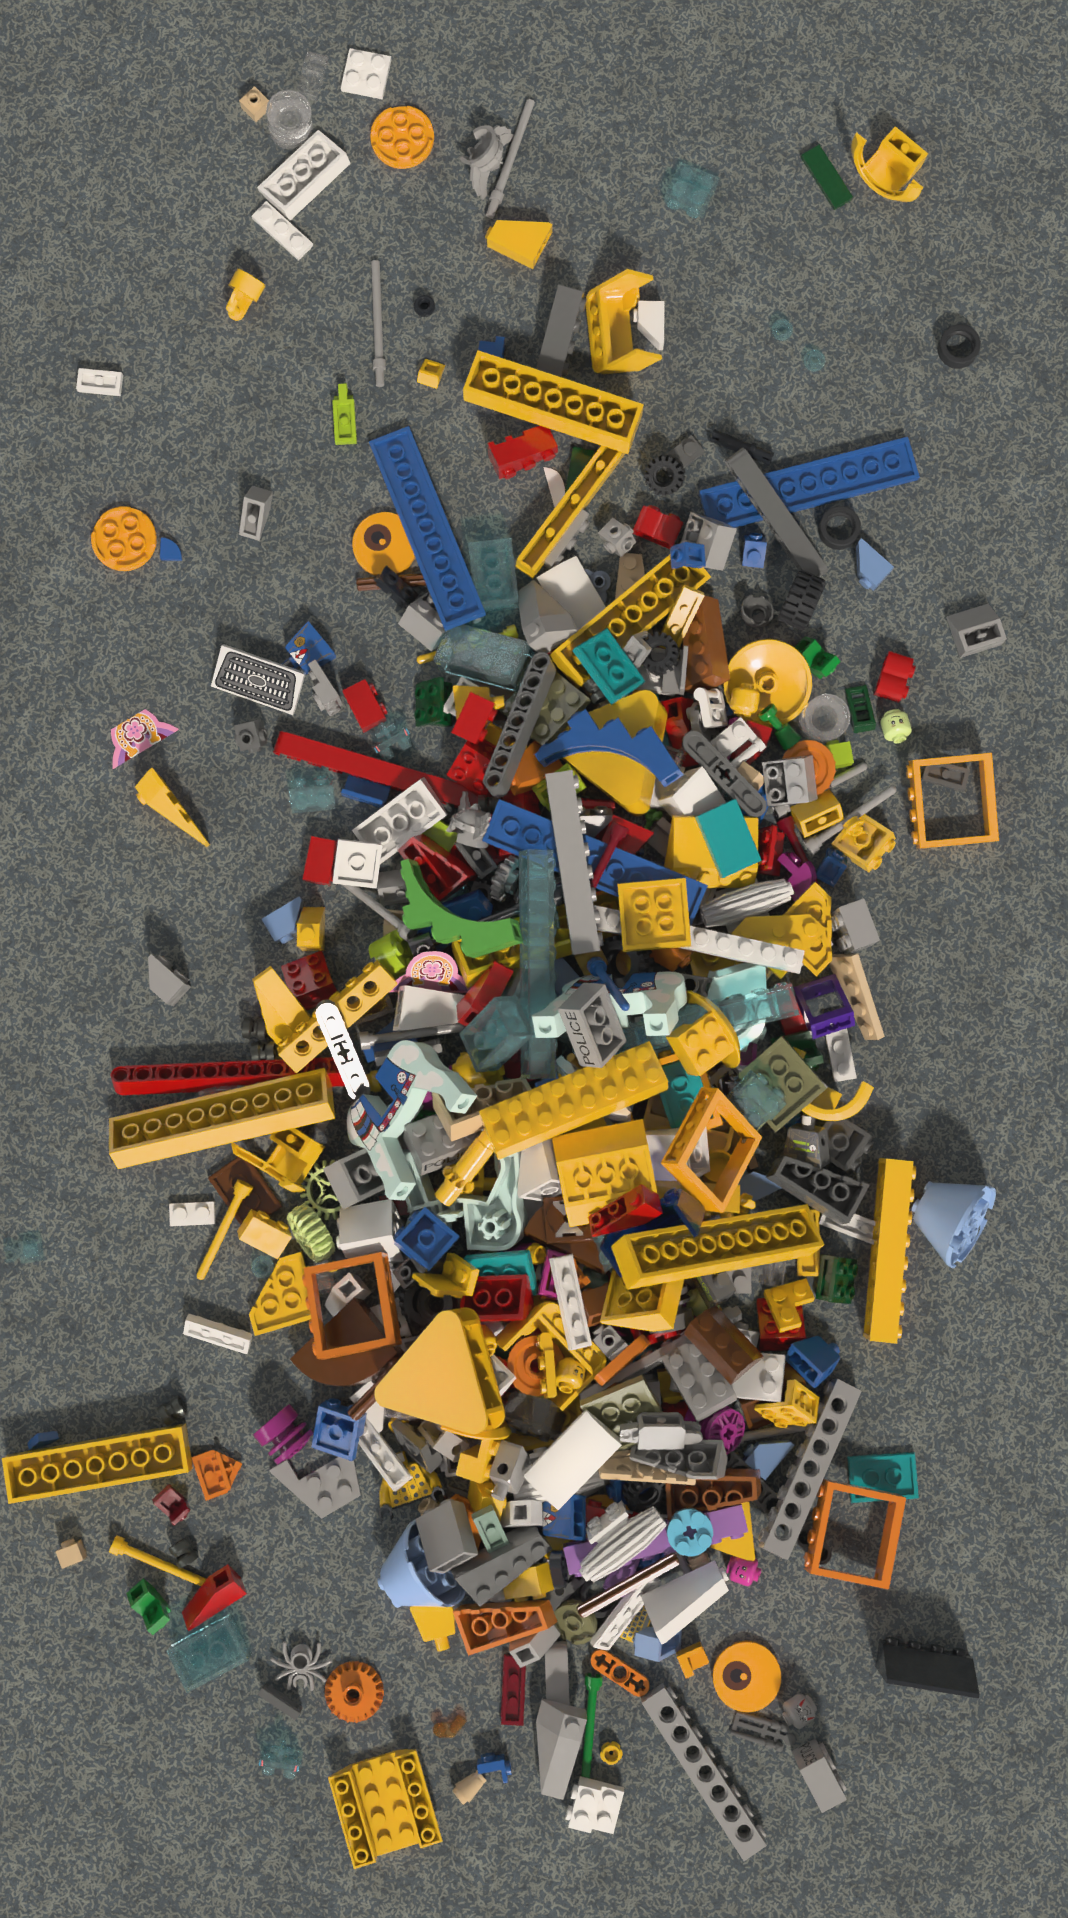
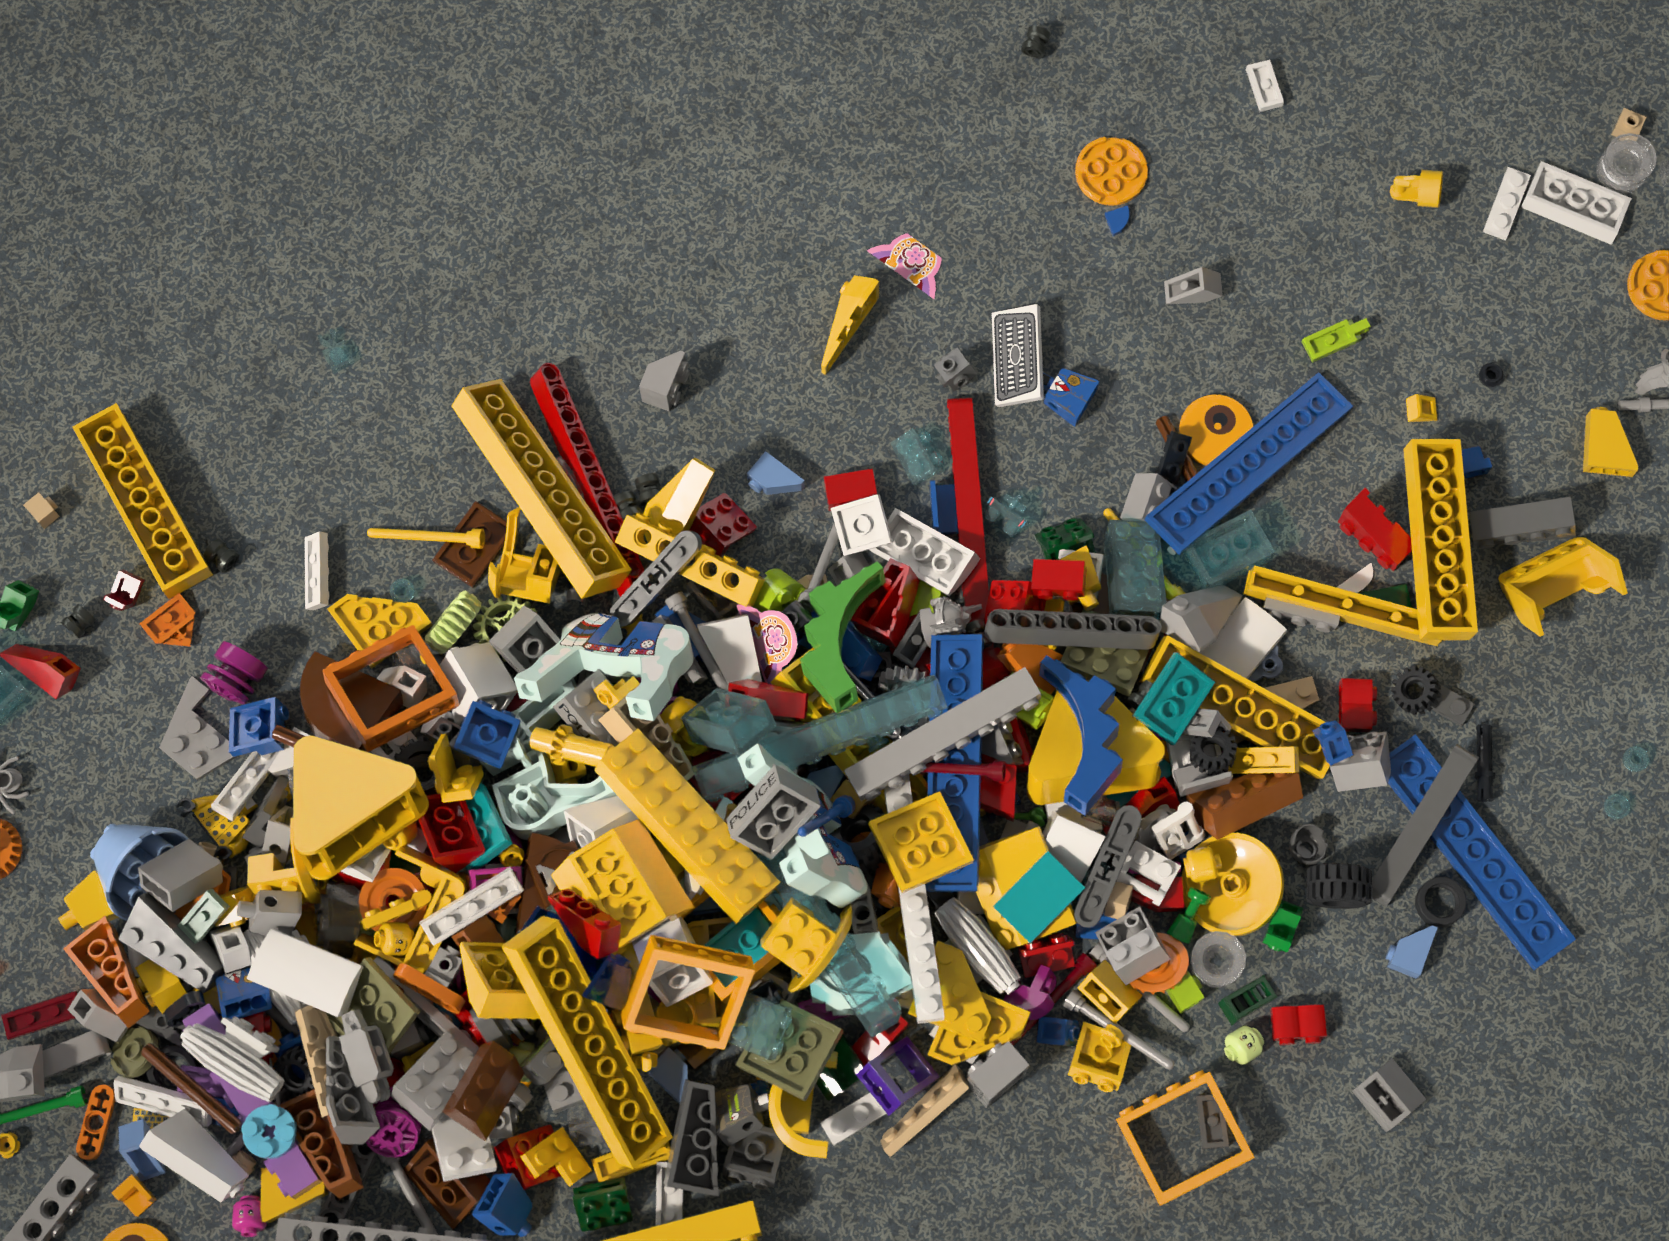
camera: 70 degrees right, 10 degrees down
(42, 1439) = (149, 440): blue tile -> none
(121, 1547) = (64, 556): yellow piece -> none
(192, 1213) = (432, 500): white plate -> none
(264, 1233) = (437, 577): yellow brick -> none
(311, 929) = (773, 505): yellow slope -> none
(325, 694) = (1031, 424): light grey plate -> none
(364, 705) = (1034, 473): red brick -> none
(379, 363) = (1408, 352): light grey bar -> none
(433, 1116) = (611, 695): none -> yellow bracket
(617, 537) = (1325, 665): light grey brick -> none
(651, 321) = (1580, 614): white slope -> none
(754, 550) = (1375, 818): bracket -> none
(766, 1455) = (381, 1195): medium blue slope -> none
(798, 1409) = (444, 1203): yellow bracket -> none

